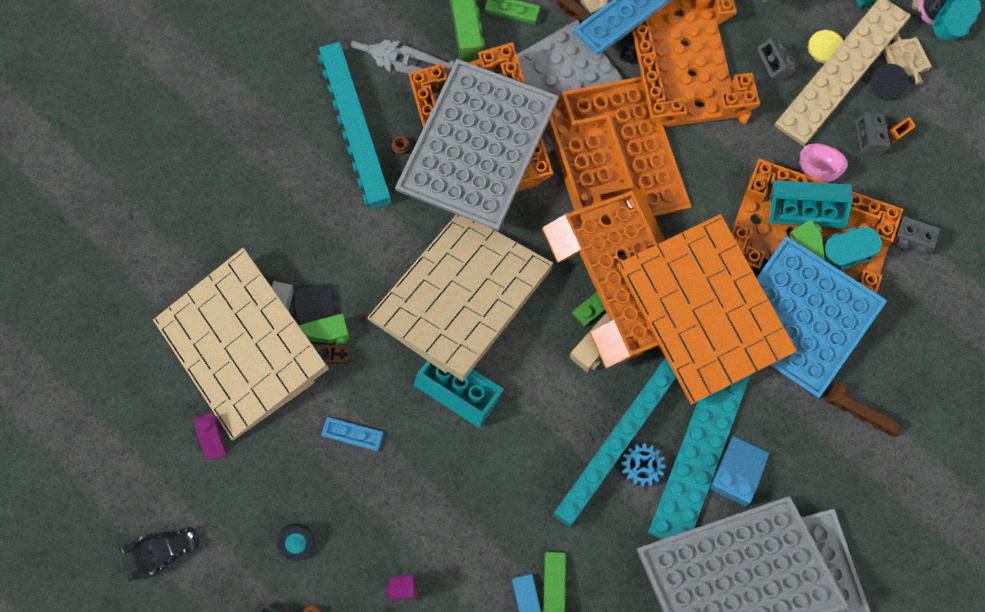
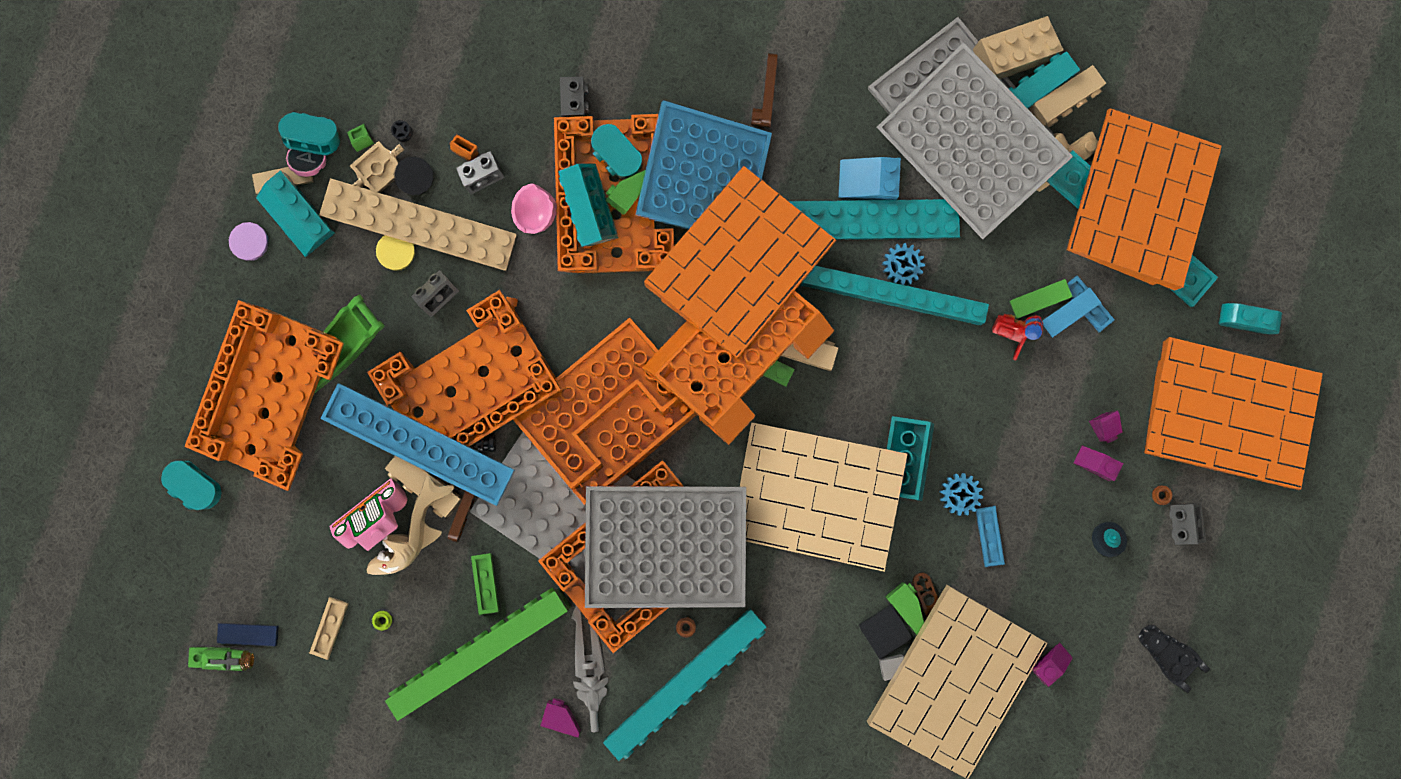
camera: 110 degrees left, 15 degrees up
(371, 565) = (1098, 463): none -> magenta slope
(375, 21) = (560, 718): none -> magenta slope
(398, 429) = (961, 486): none -> dark azure gear
(533, 543) = (1018, 330): none -> red piece
(933, 84) = (401, 127): none -> black wheel
(938, 56) = (360, 137): none -> bright green slope

